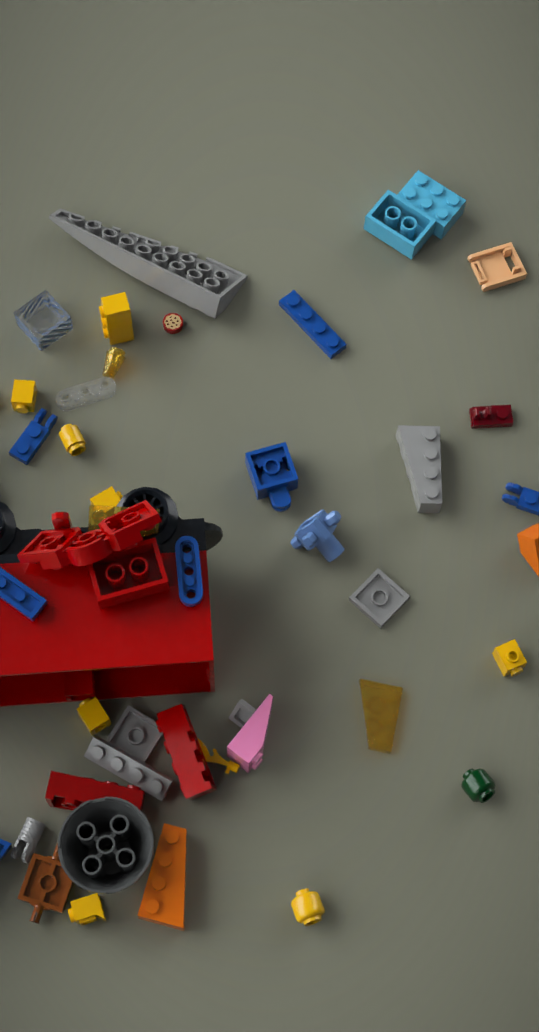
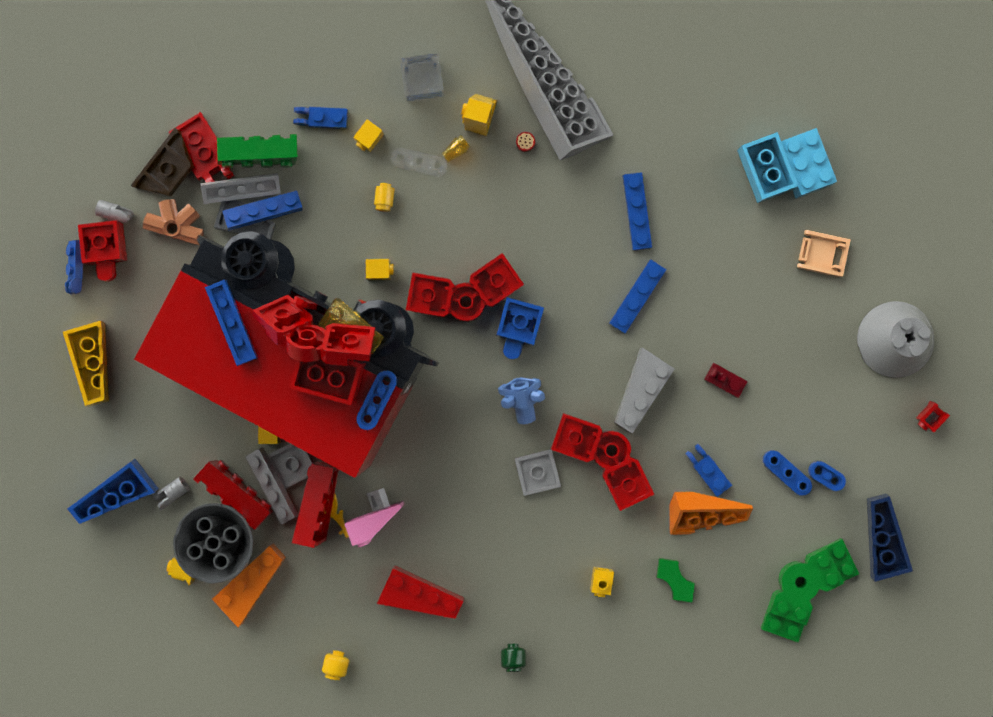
camera: 35 degrees right, 20 degrees up
(32, 437) = (355, 175): blue hinge -> none
(45, 885) = (161, 531): dark orange plate -> none
(219, 463) = (441, 297): none -> red plate
(344, 780) = (417, 594): none -> red wedge
(362, 393) = (637, 296): none -> blue plate
(381, 711) = (479, 560): clear yellow wing -> none
(457, 548) = (621, 472): none -> red plate

